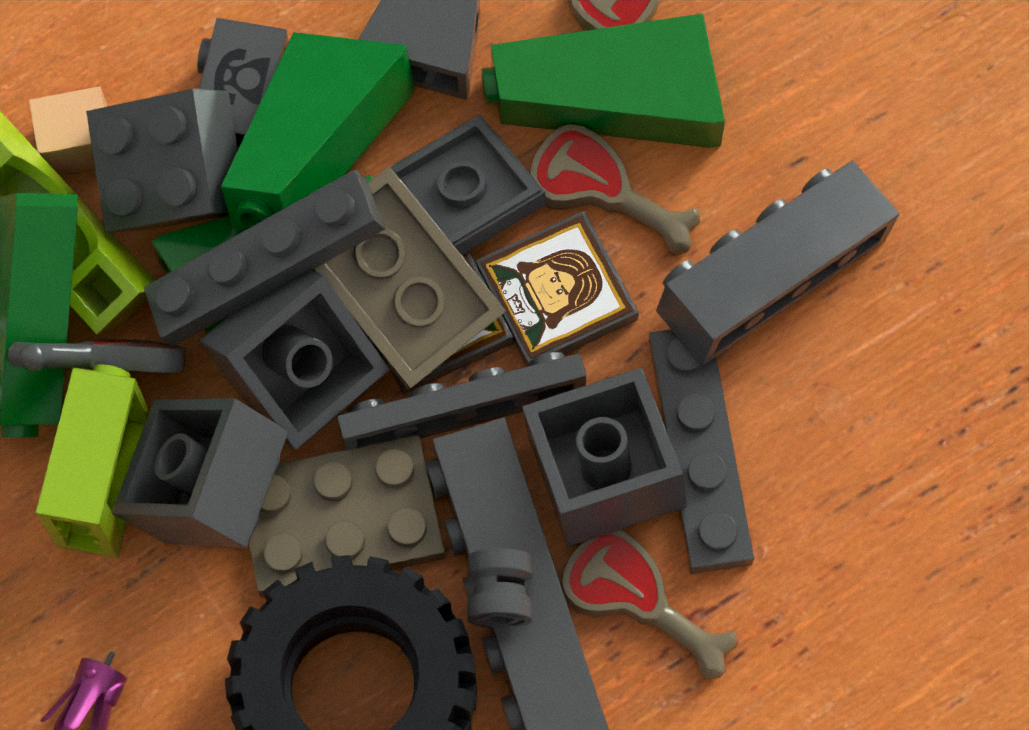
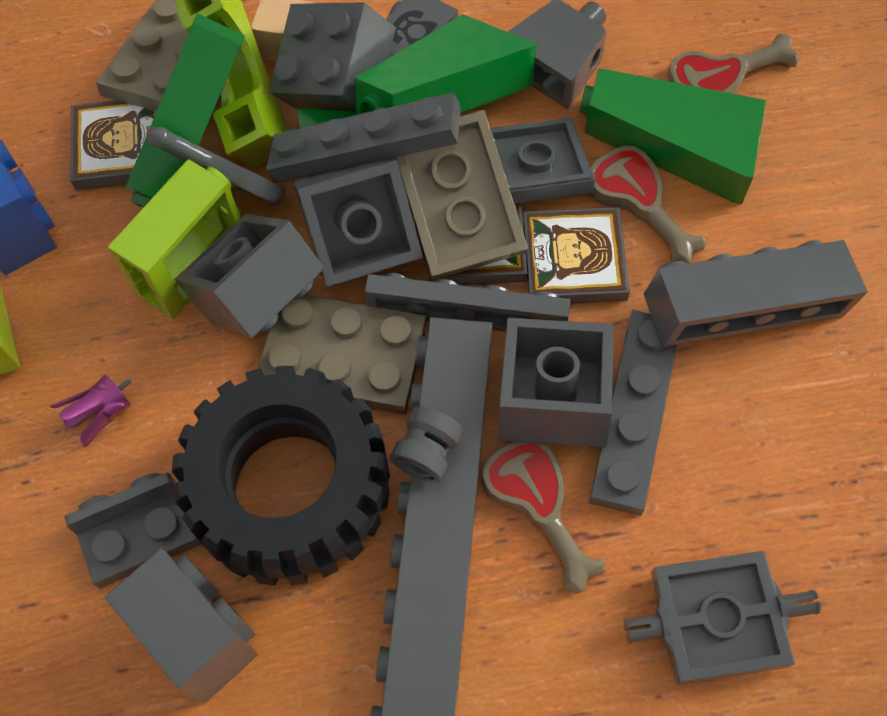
camera: 25 degrees right, 5 degrees down
(877, 639) = (721, 617): none -> dark grey plate

